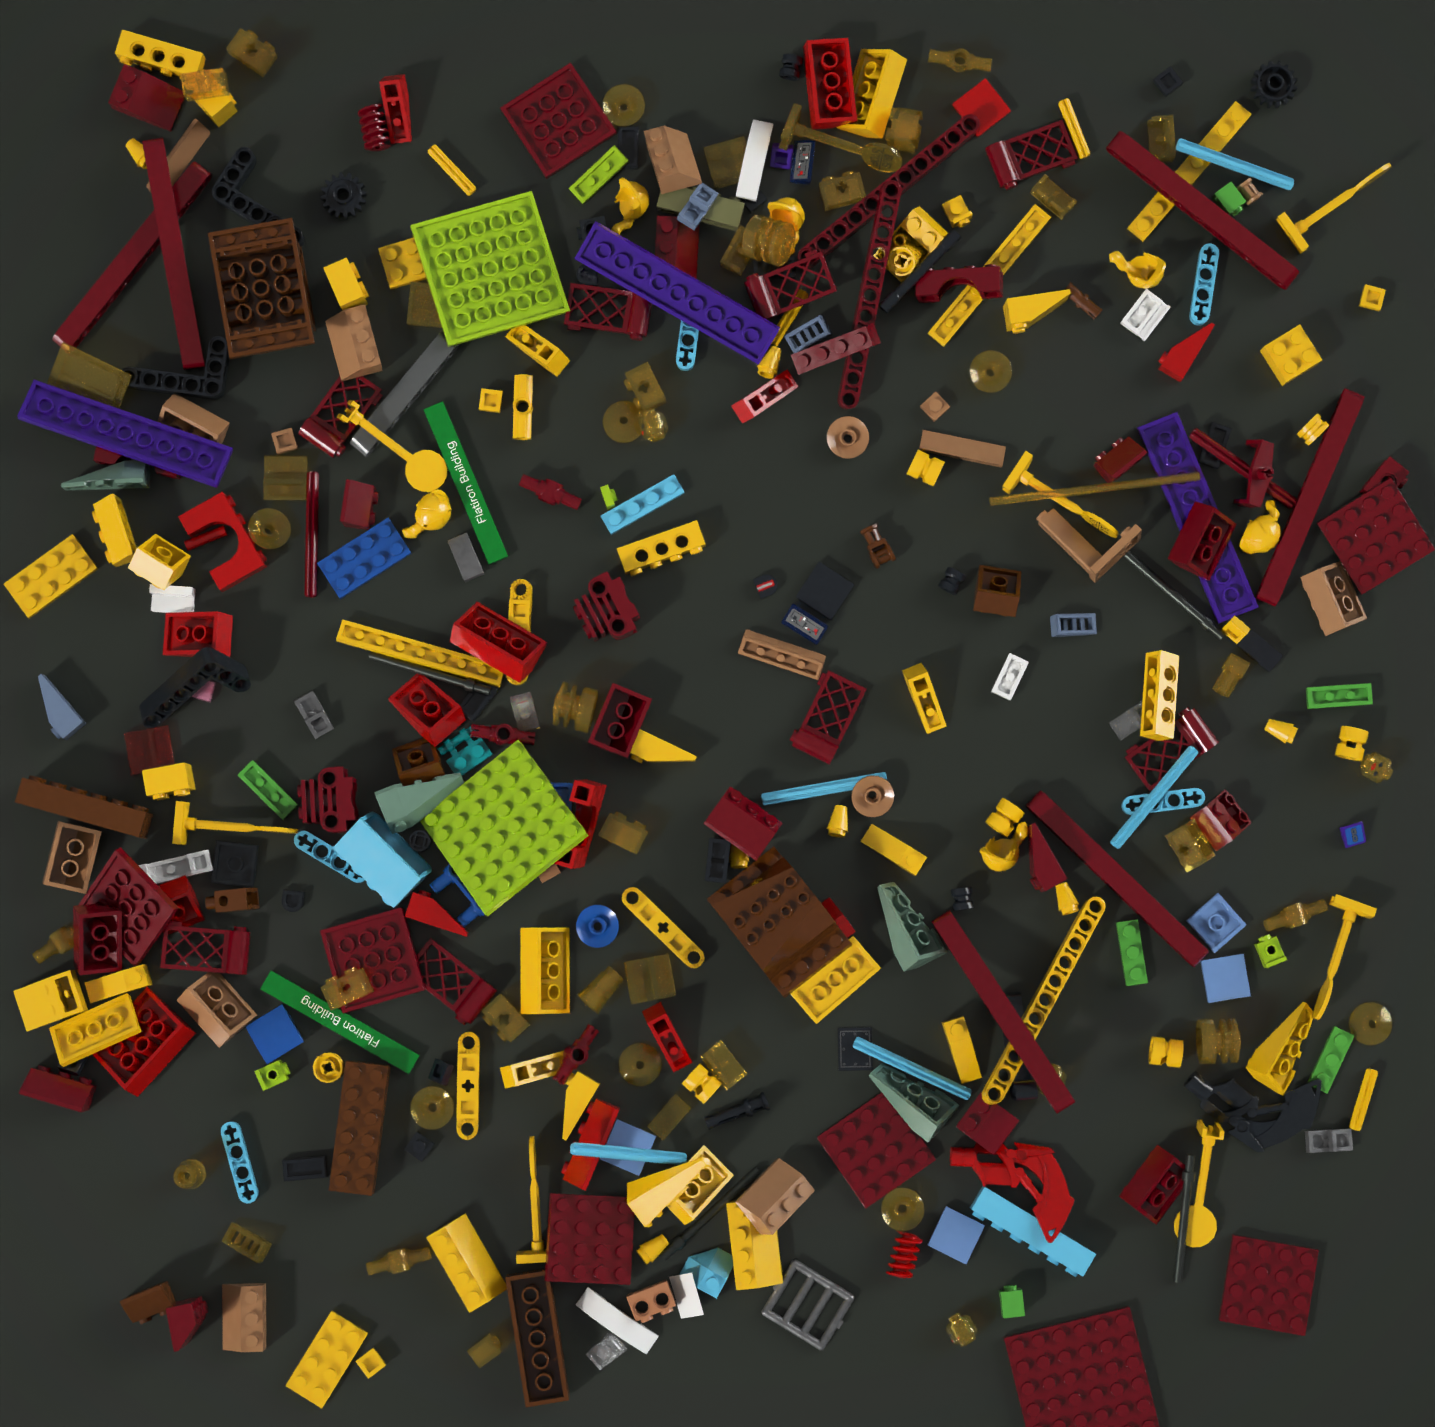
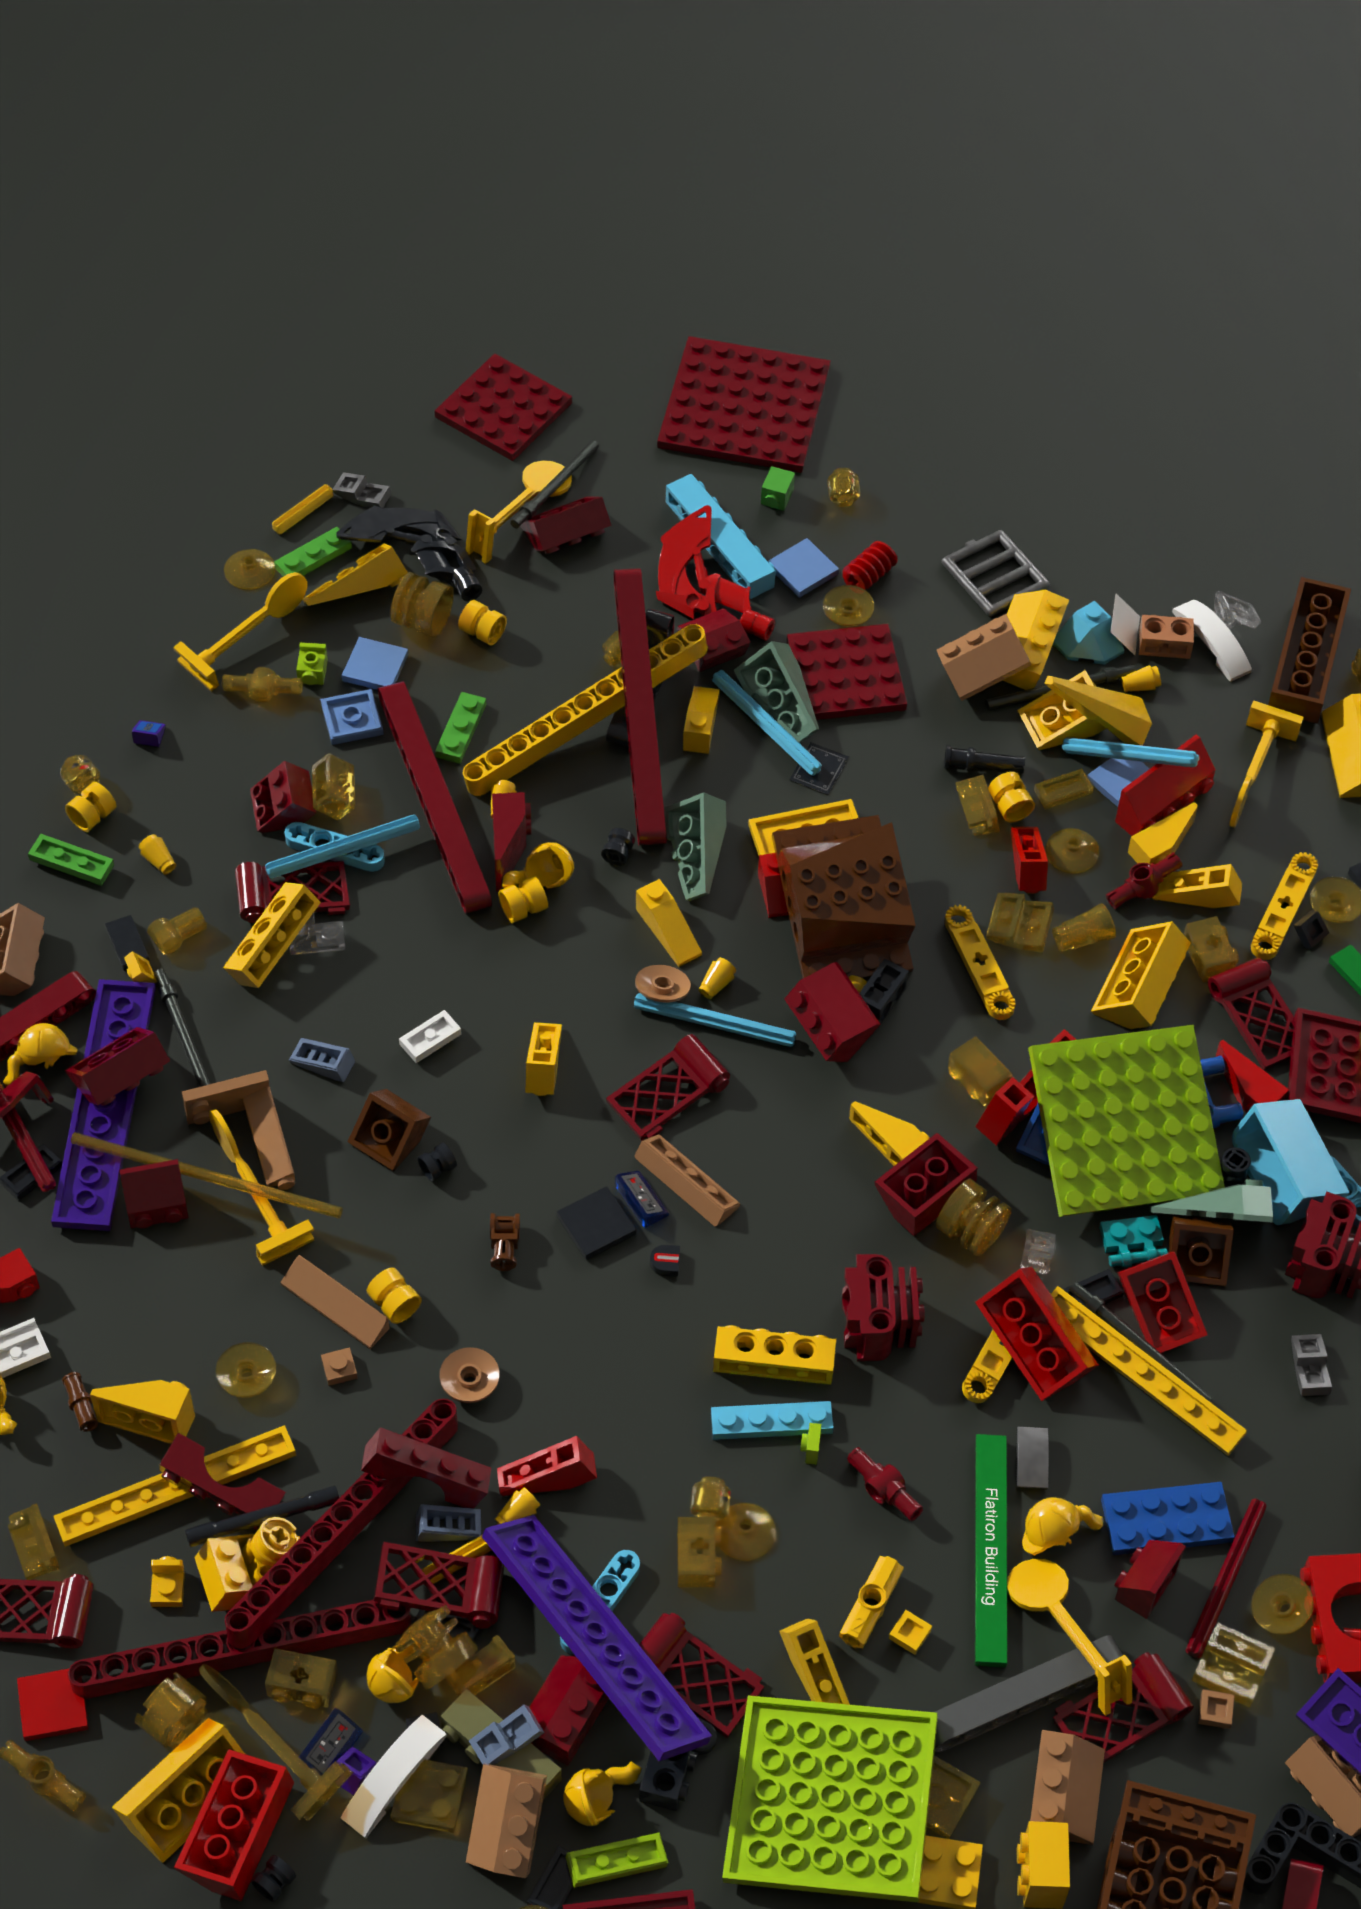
camera: 155 degrees left, 30 degrees down
(491, 733) = (1089, 1241): dark red pin -> none
(586, 922) = (1060, 984): blue dish -> none
(589, 1239) = (1213, 702): dark red plate -> none

